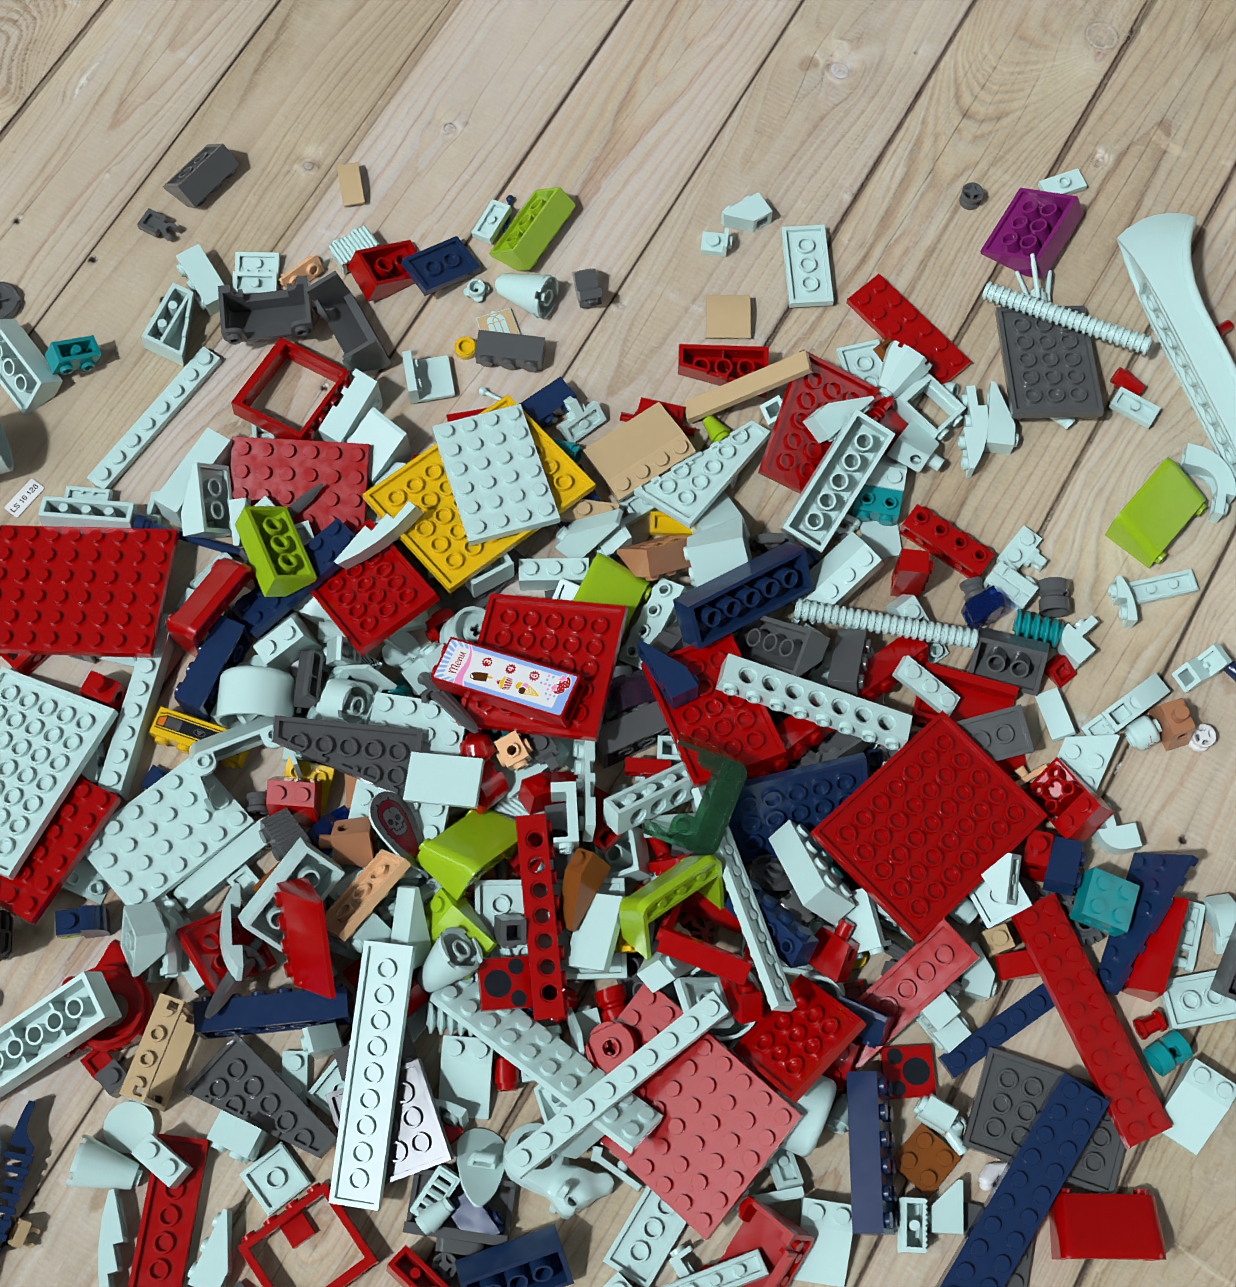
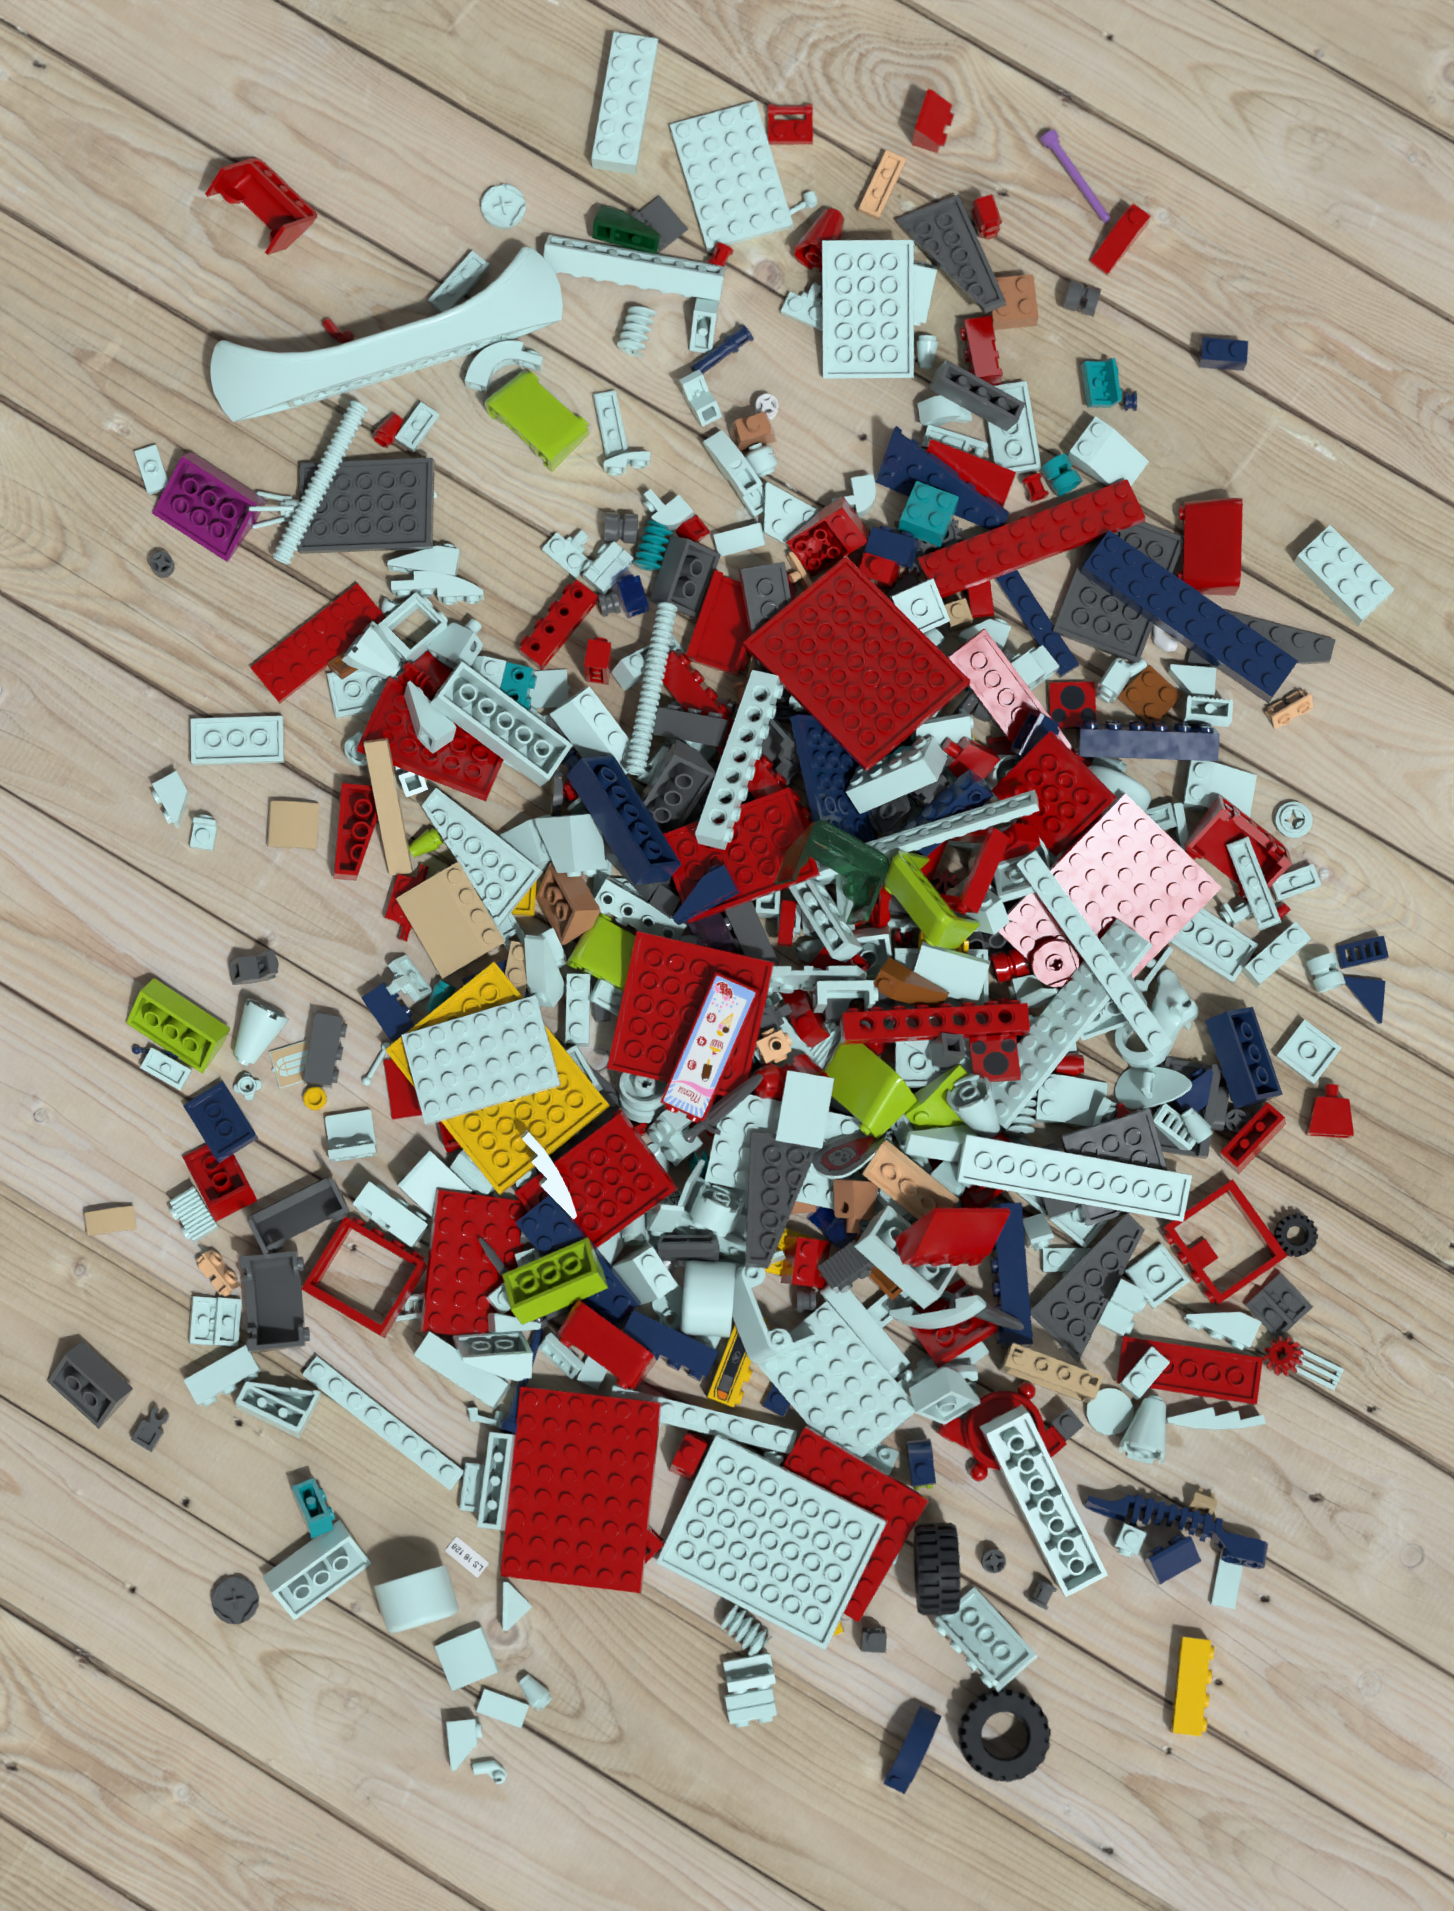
camera: 90 degrees left, 10 degrees up
(925, 685) = (712, 656): light aqua plate -> none
(1004, 878) = (911, 601): light aqua slope -> none

